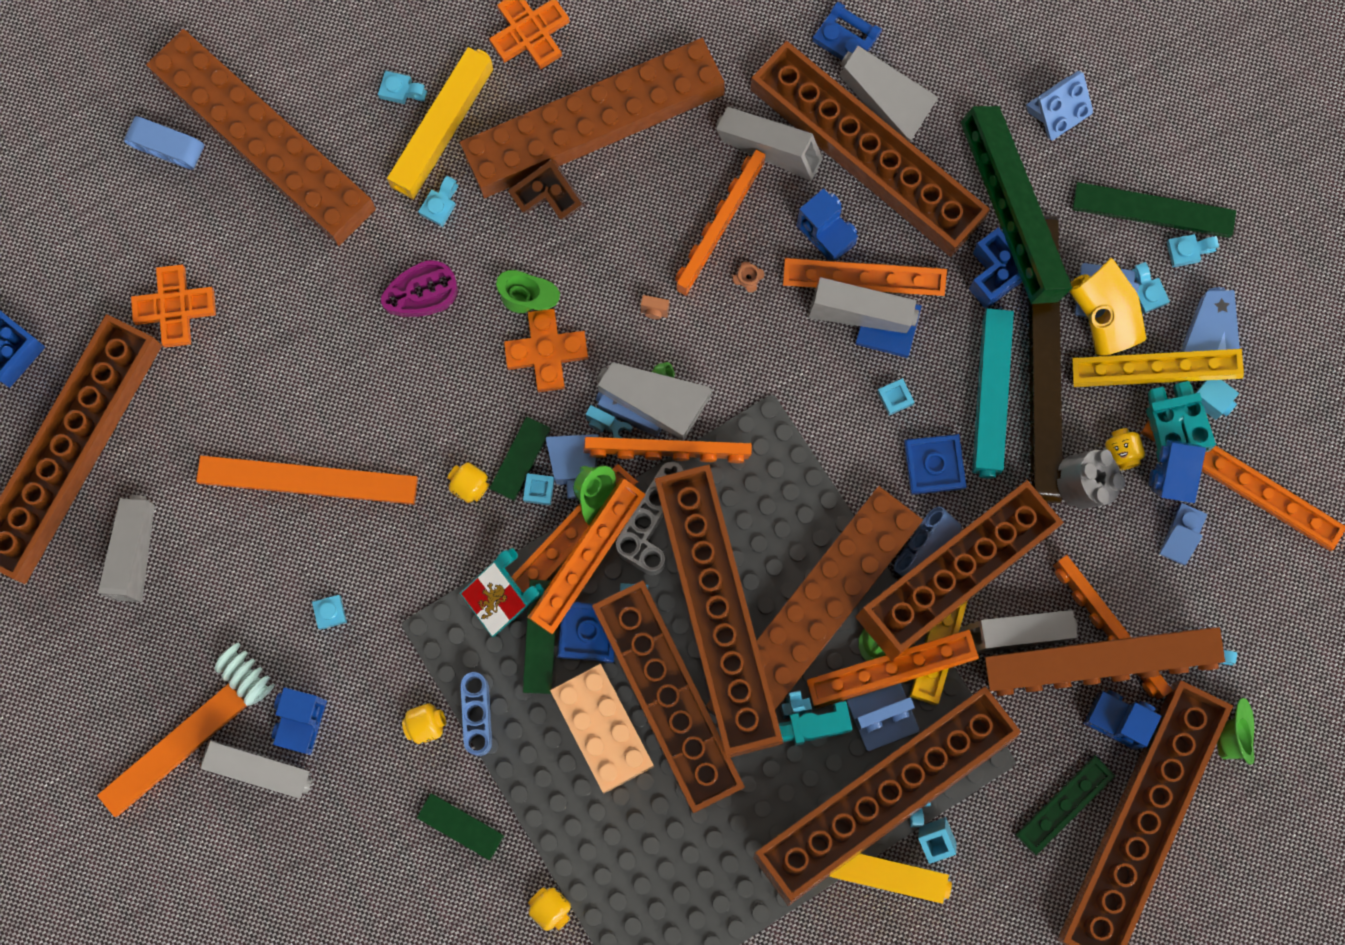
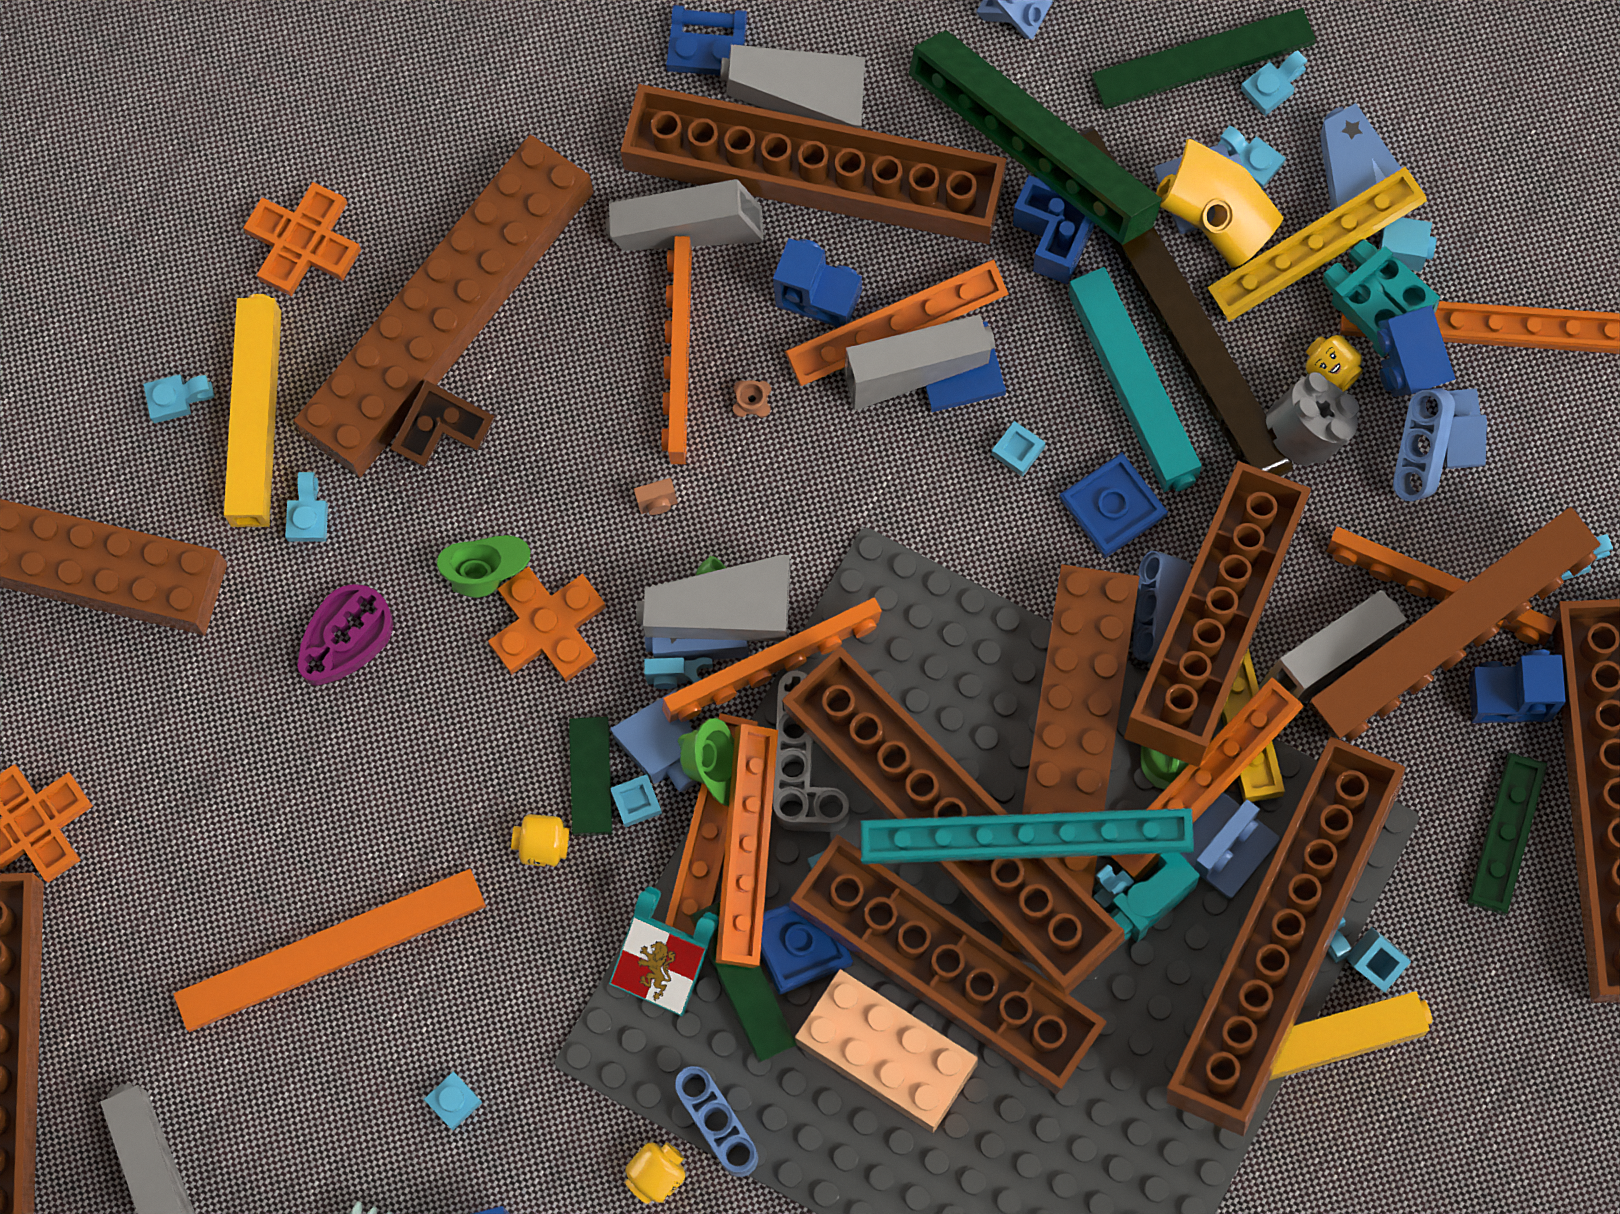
camera: 25 degrees left, 5 degrees down
(756, 648) = (1027, 836): none -> teal tile
(1164, 530) = (1410, 457): none -> medium blue beam

